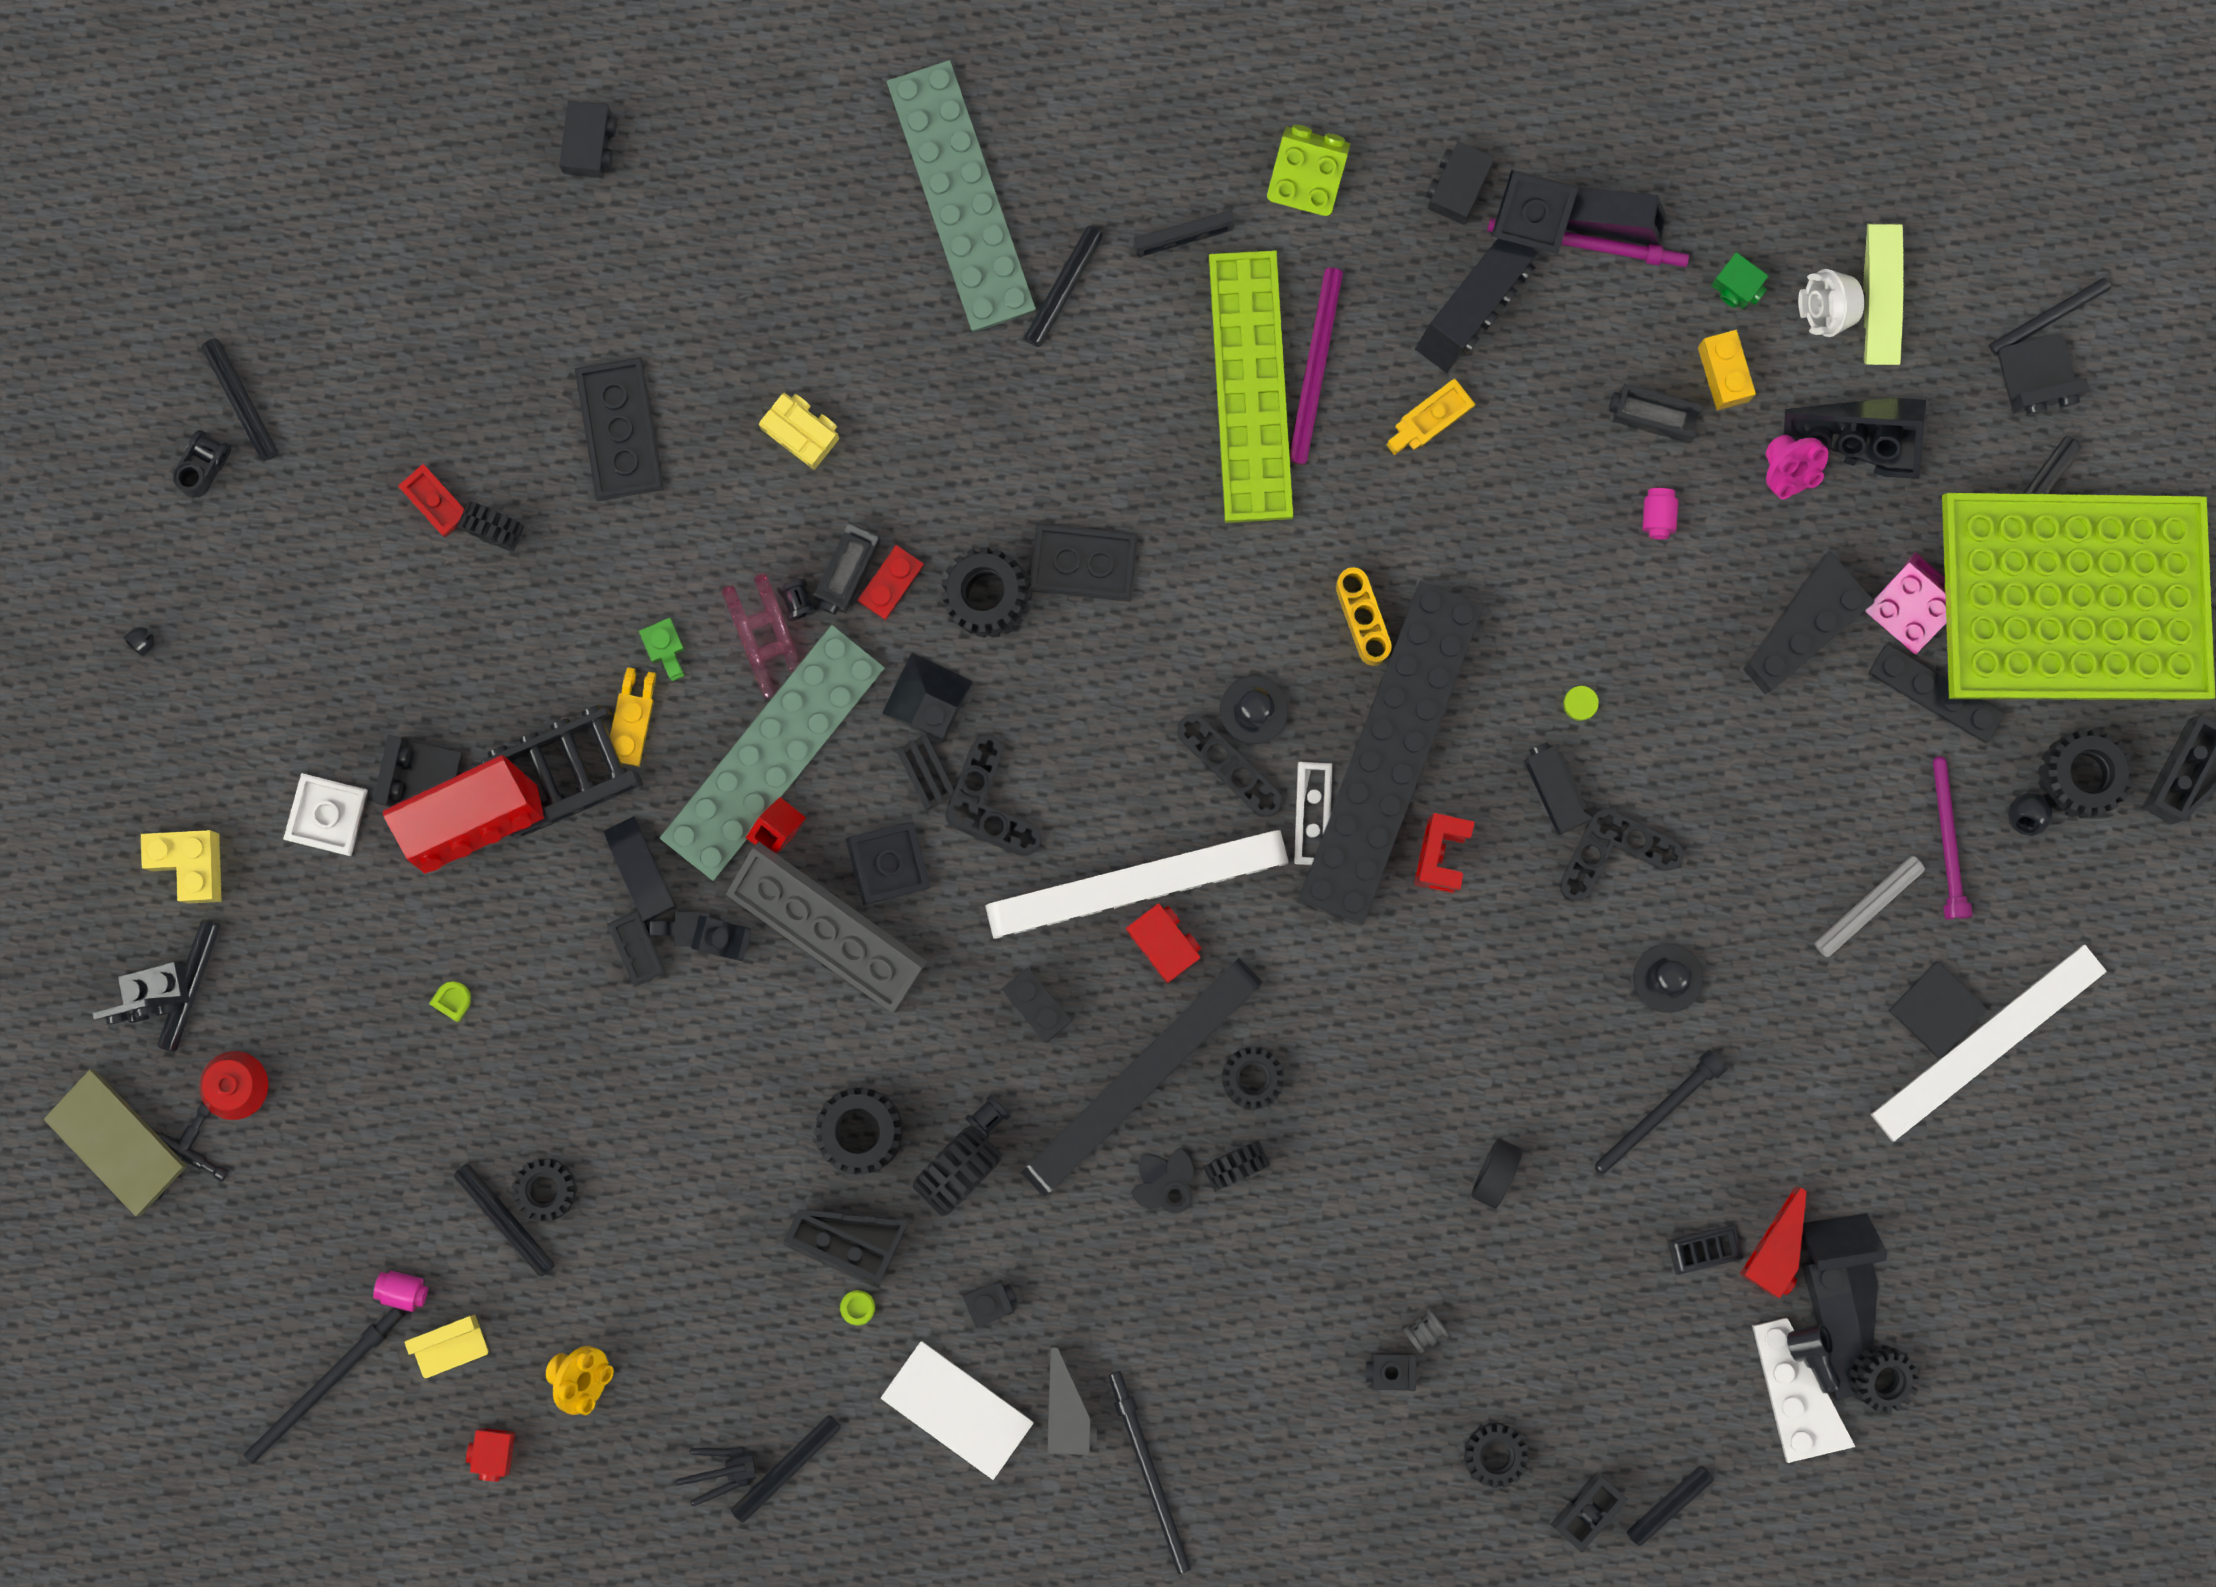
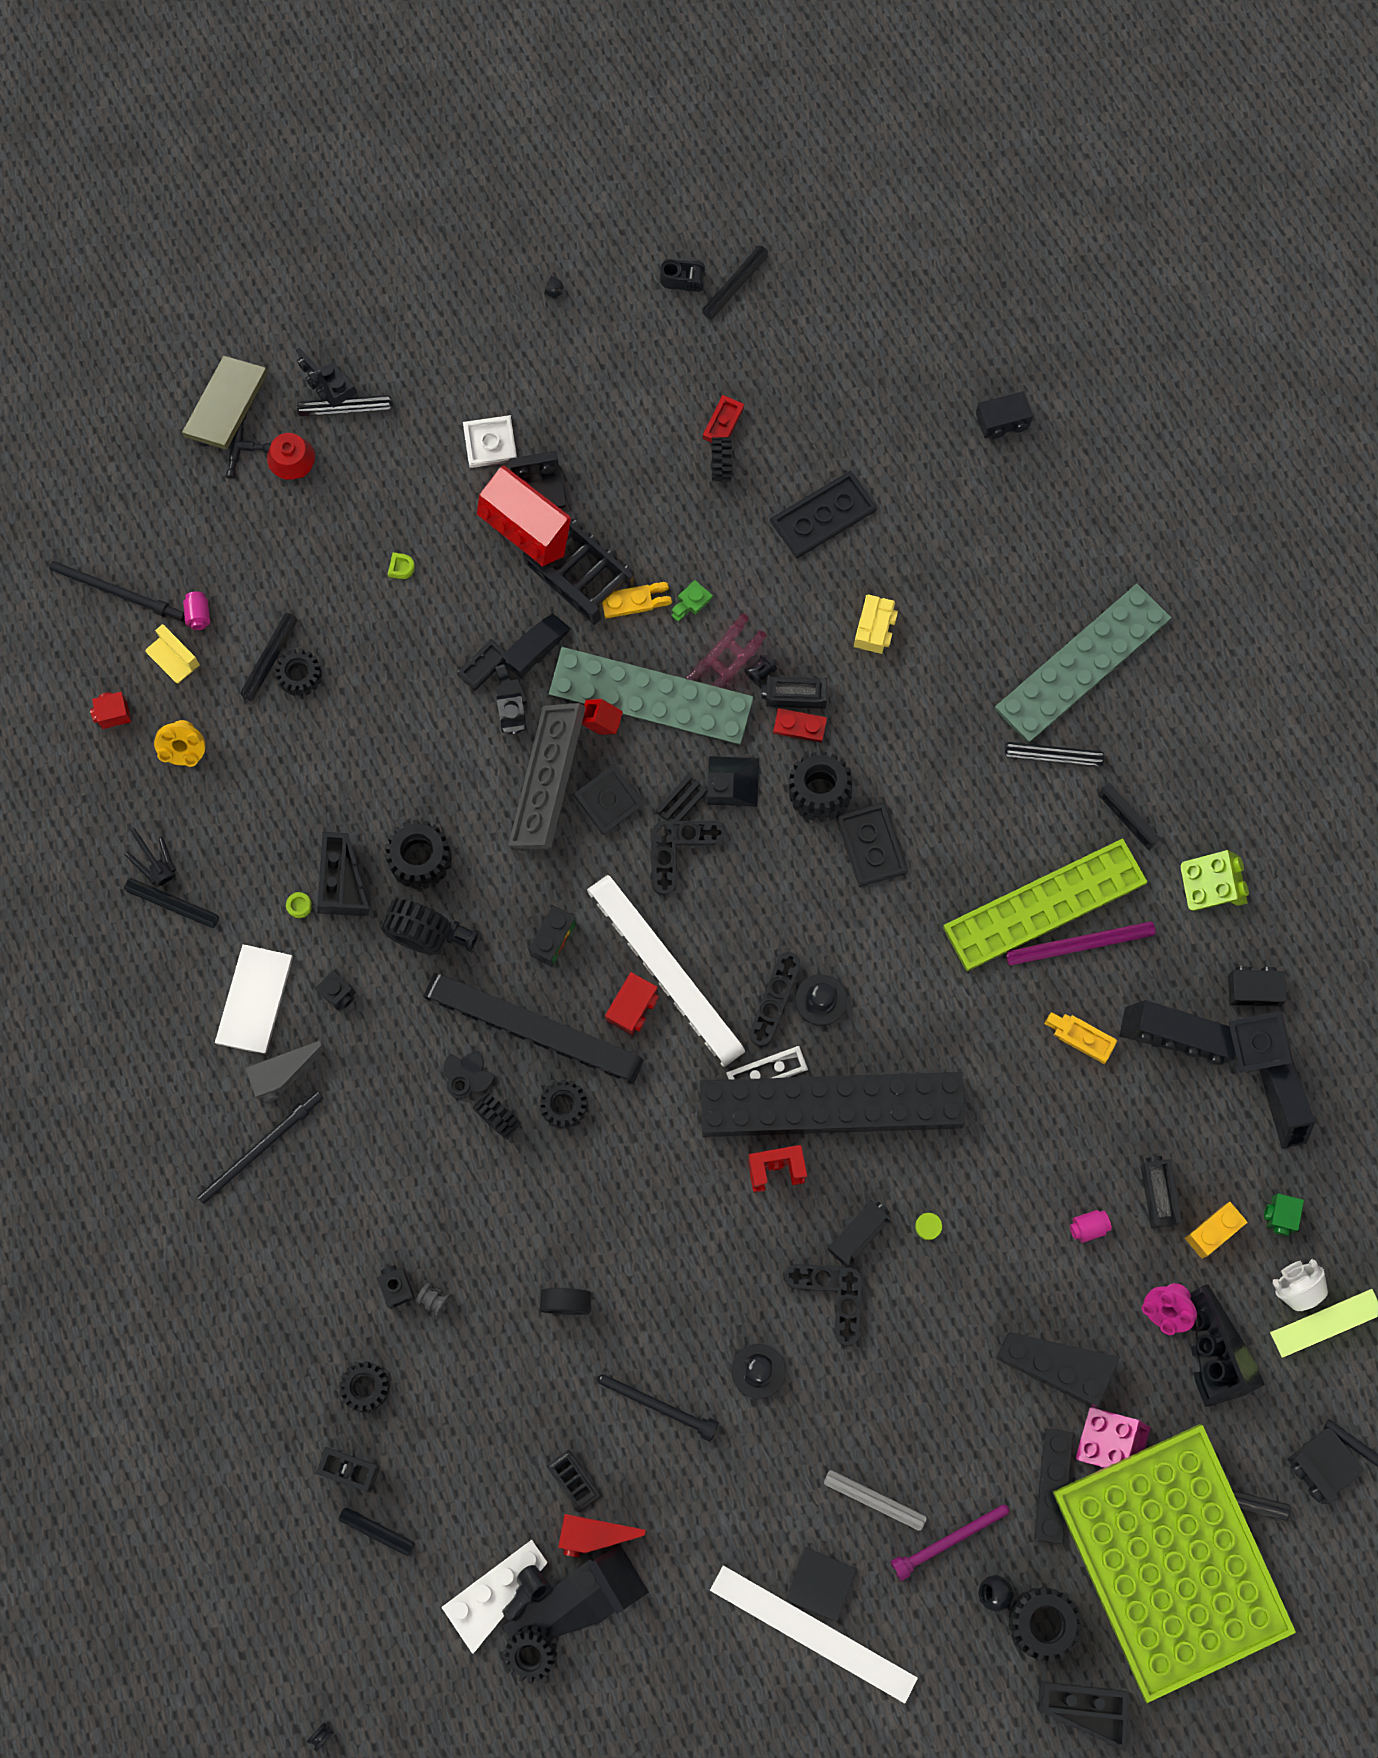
camera: 70 degrees right, 10 degrees down
(193, 856) = (425, 374): light yellow brick -> none
(1363, 600) = (926, 1036): yellow beam -> none
(1652, 254) = (1273, 1144): magenta bar -> none

